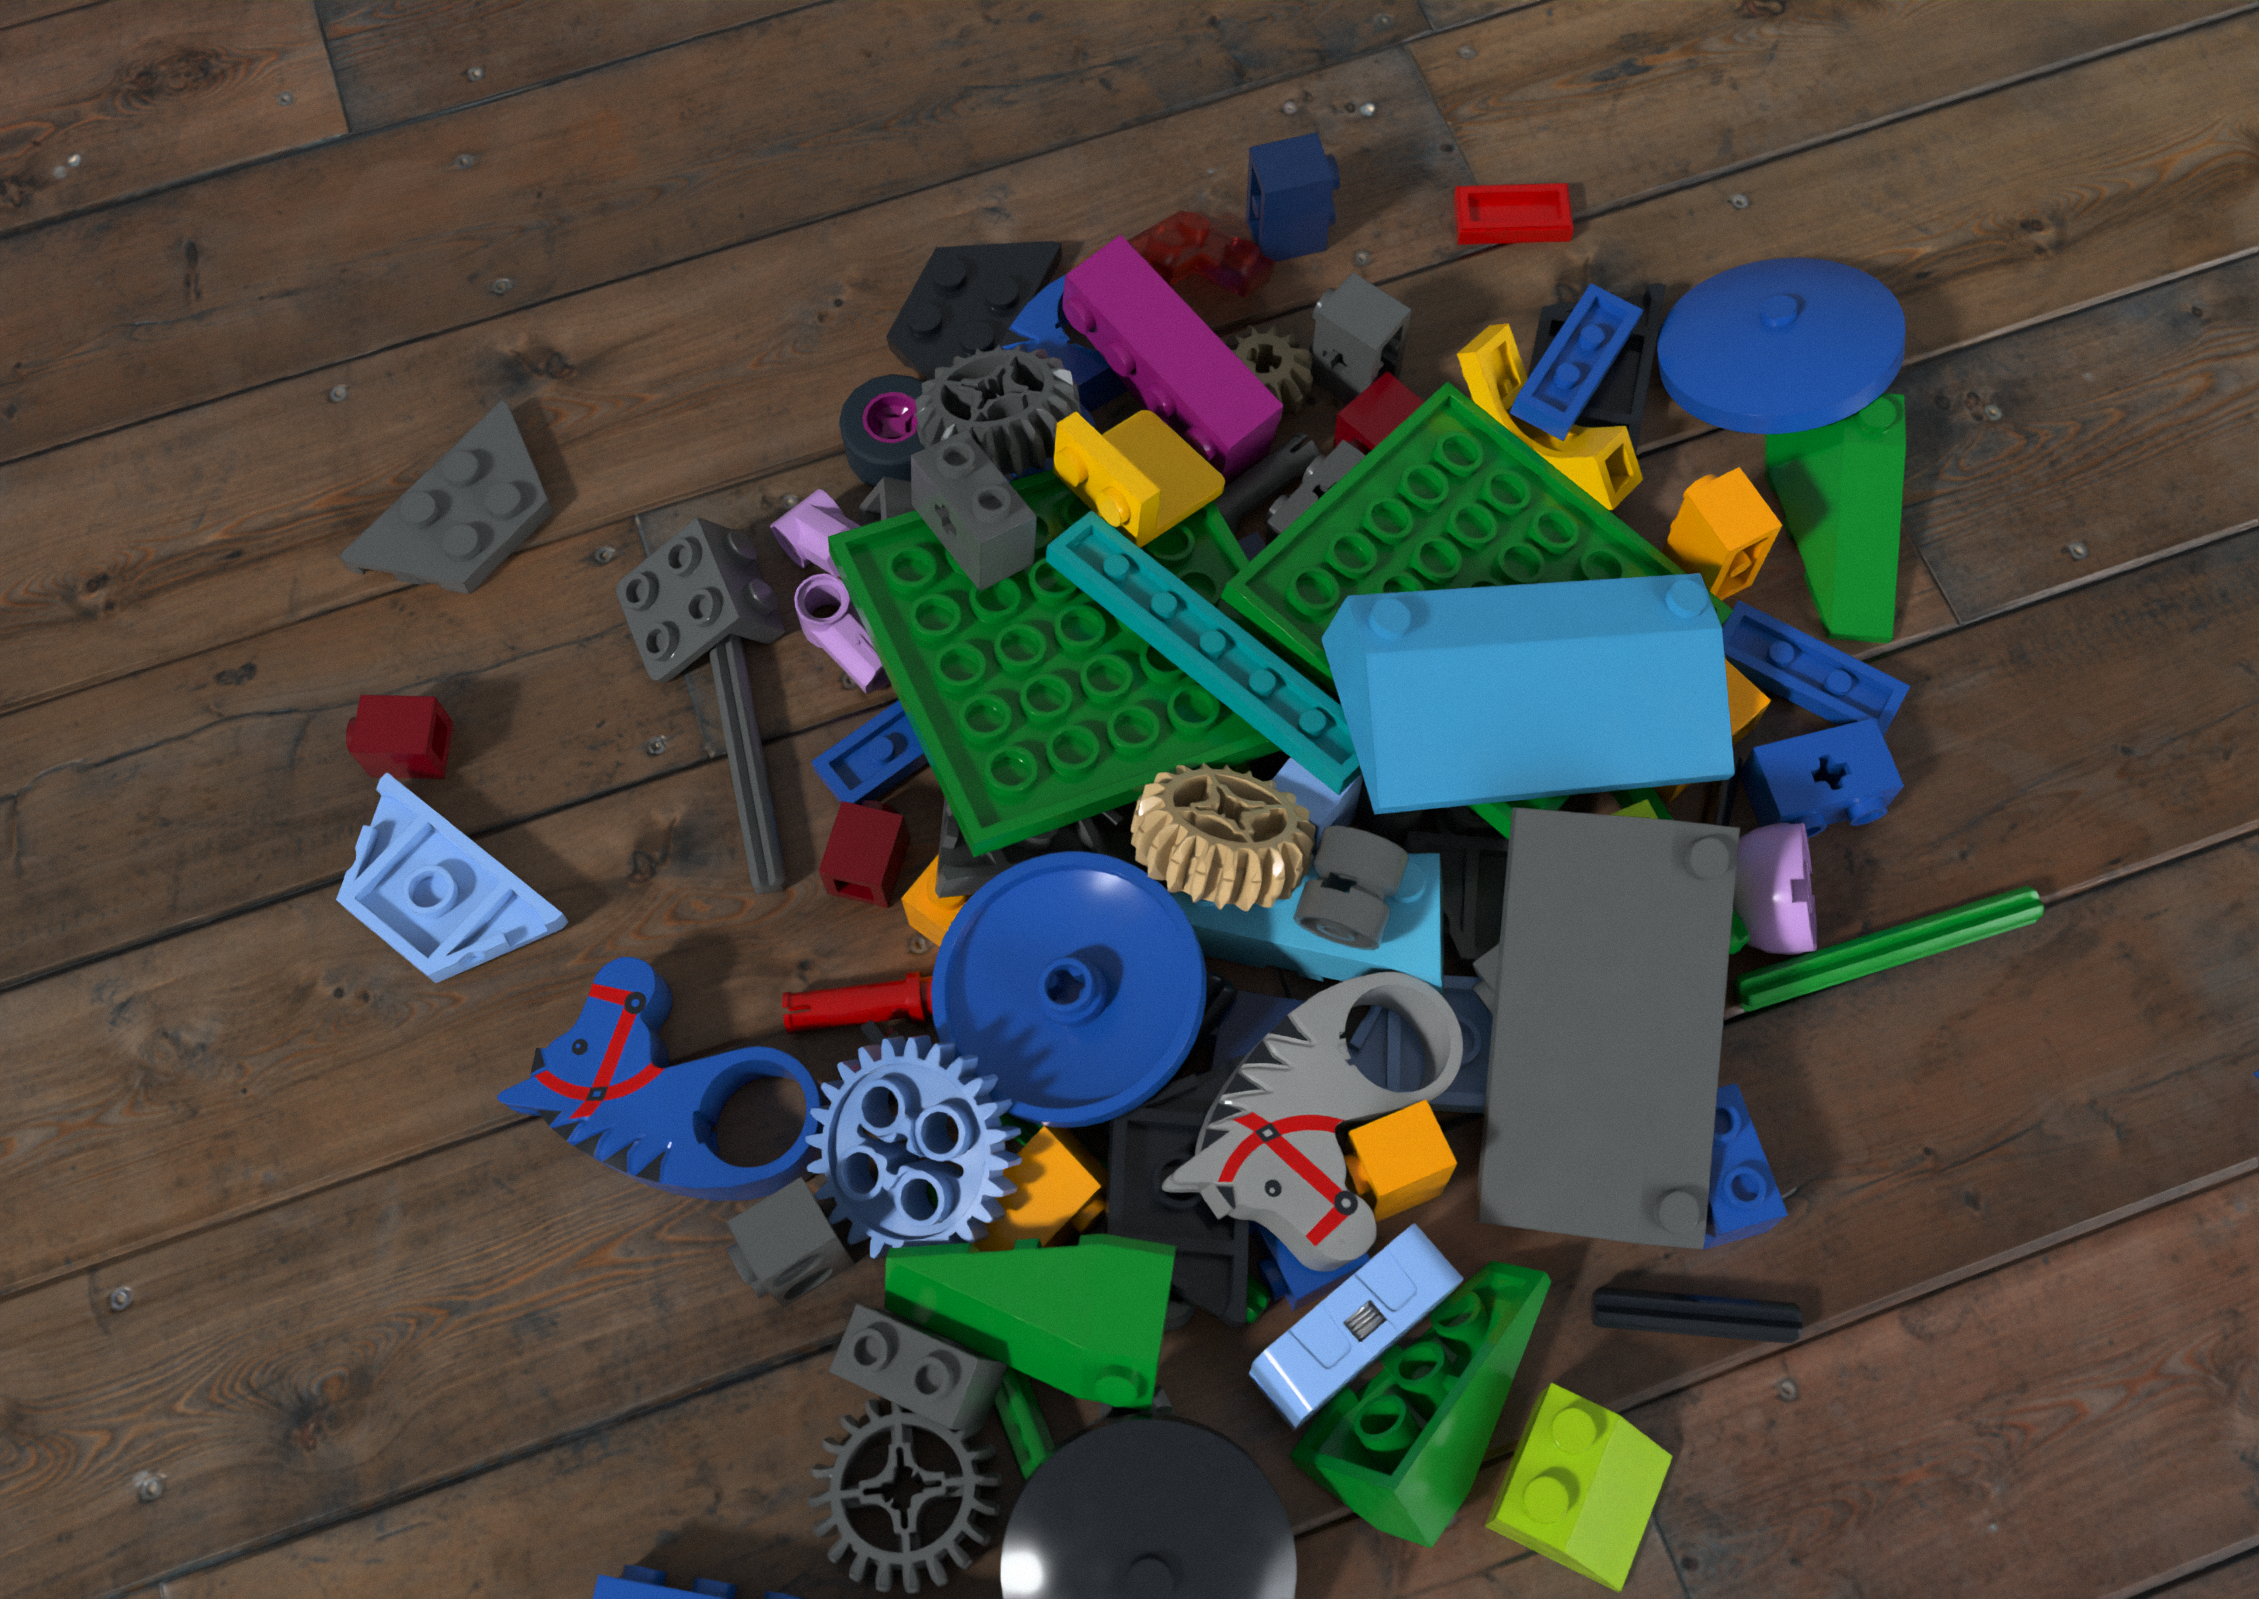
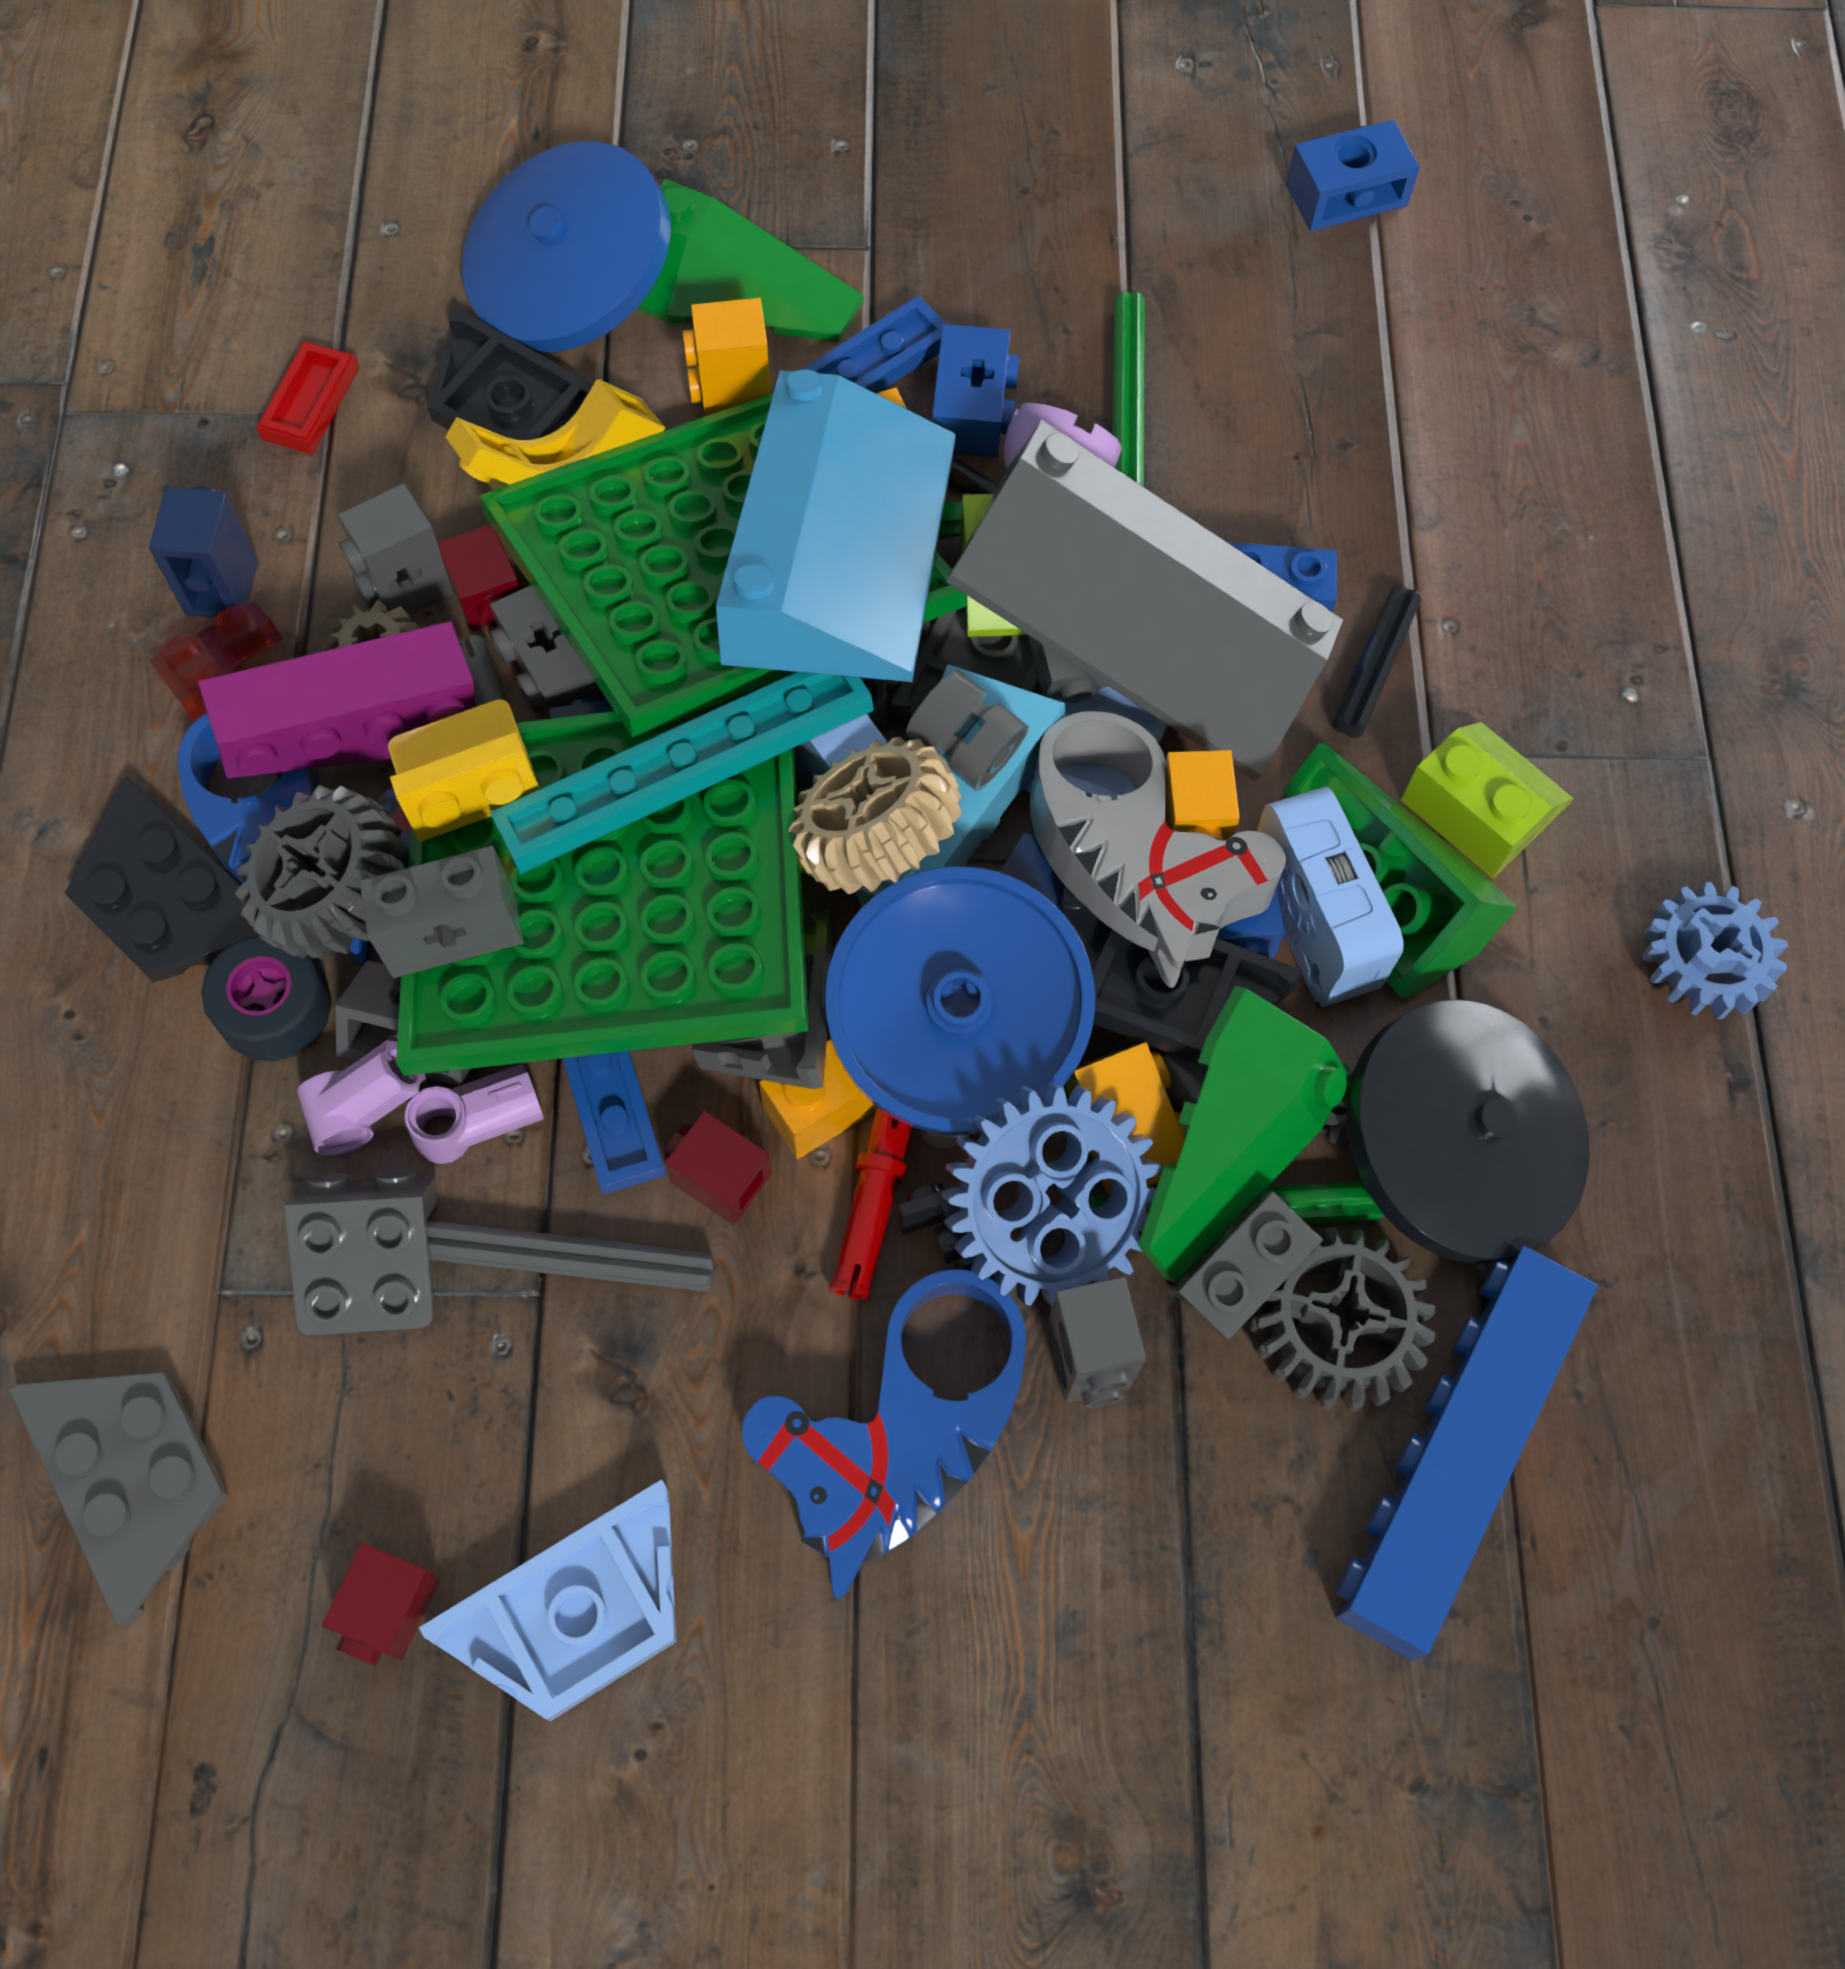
camera: 75 degrees left, 0 degrees up
(1576, 362) = (510, 392): blue plate -> none

